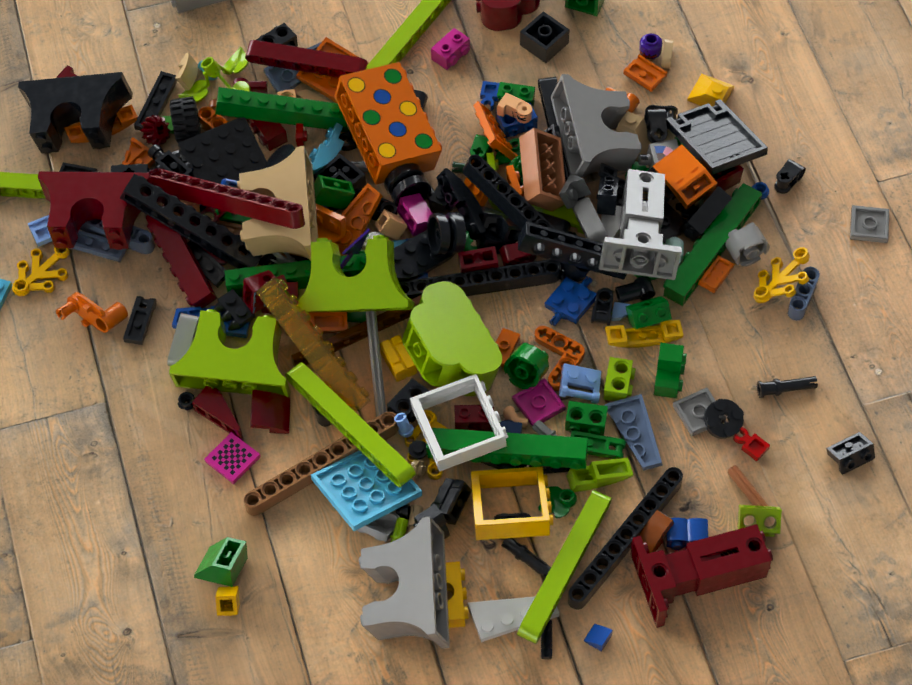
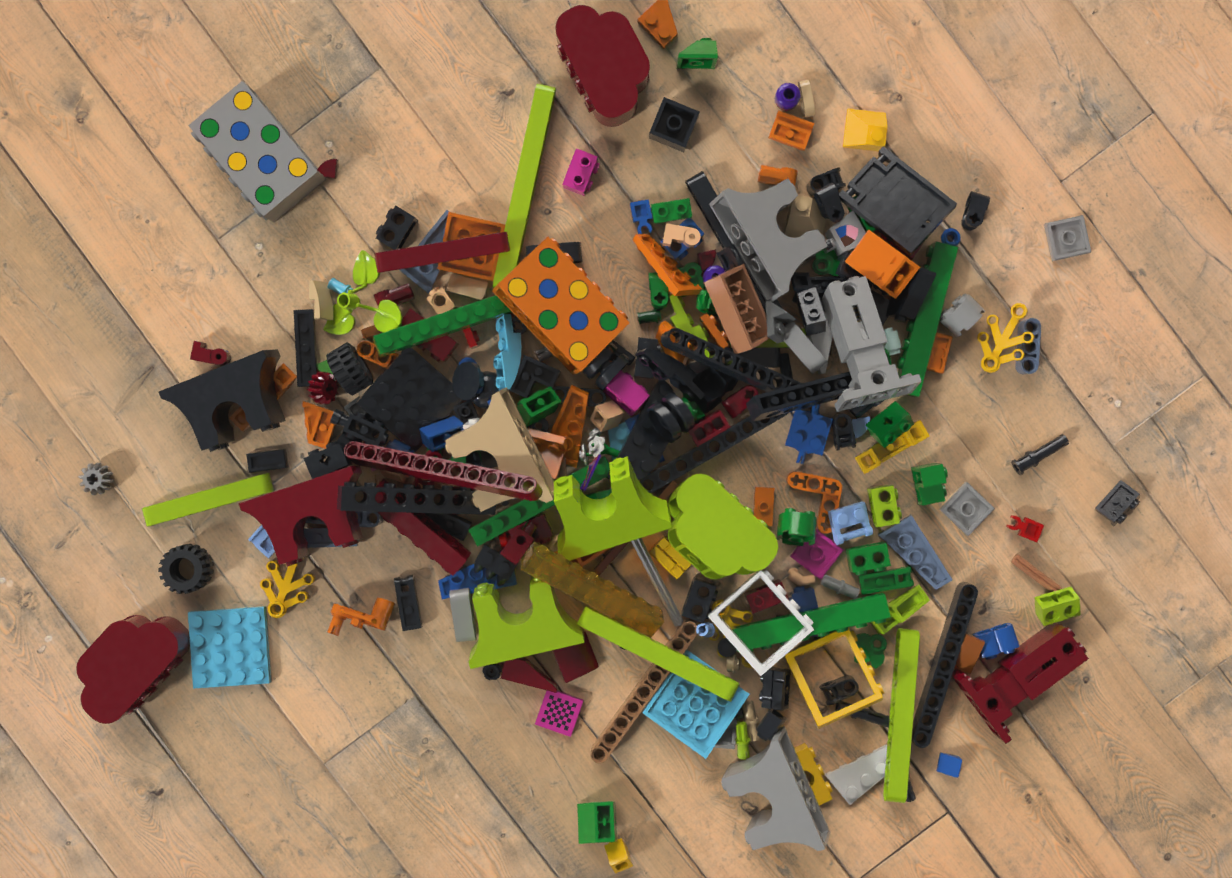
camera: 20 degrees left, 30 degrees up
(713, 422) = (1001, 520): black plate -> none

